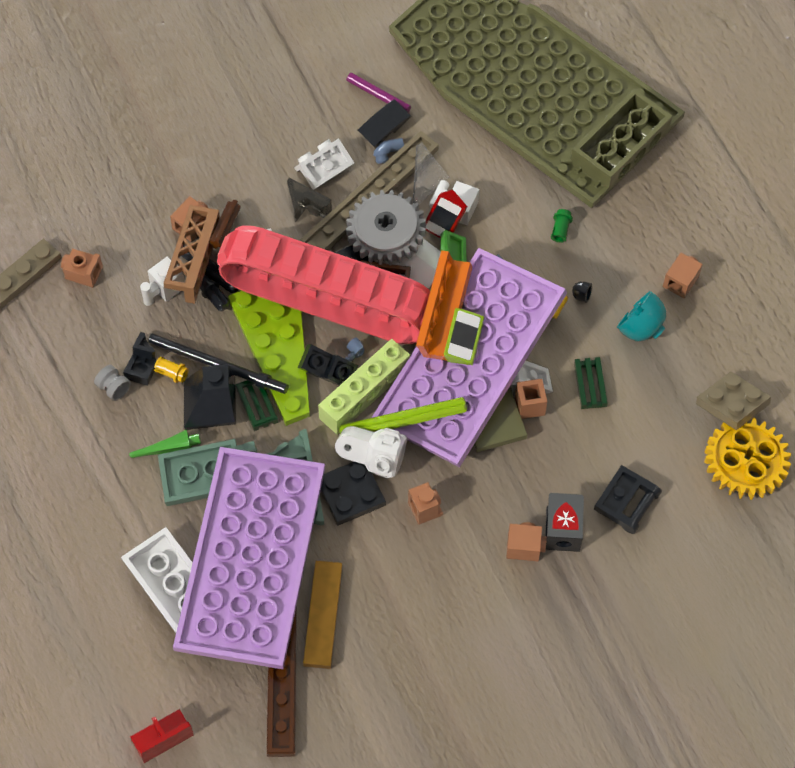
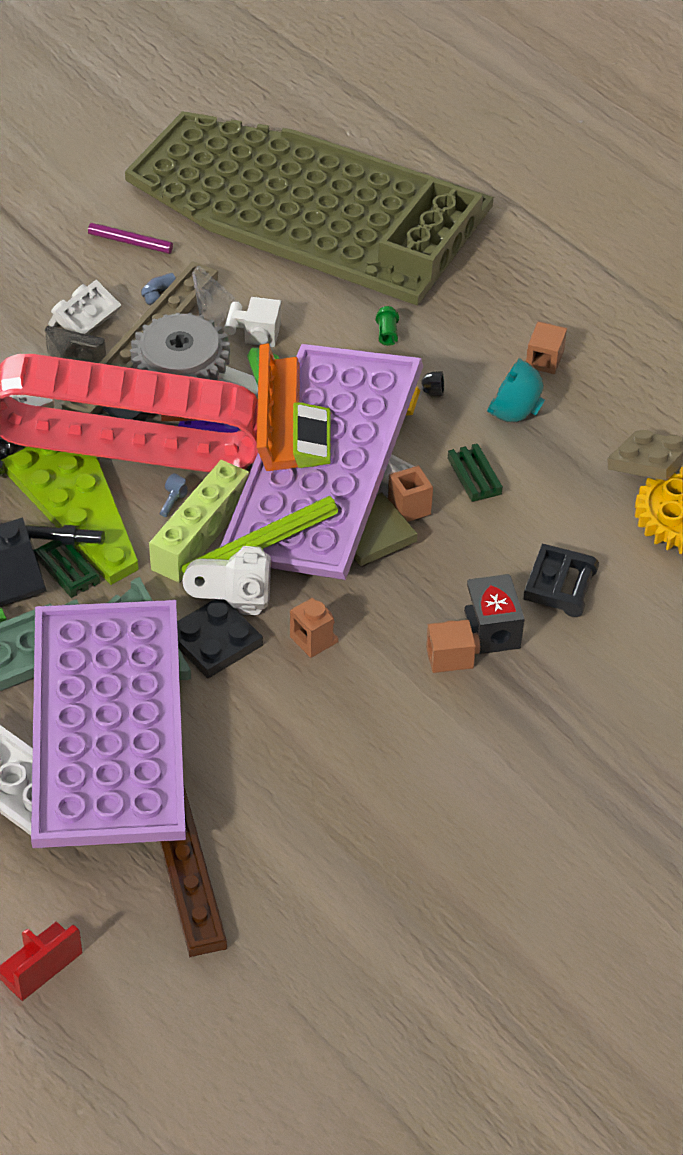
camera: 15 degrees left, 15 degrees down
(322, 615) = (218, 778): pearl gold tile -> none
(325, 365) = (143, 508): black slope -> none
(384, 122) = (145, 261): black slope -> none
(445, 213) = (248, 327): slope -> none

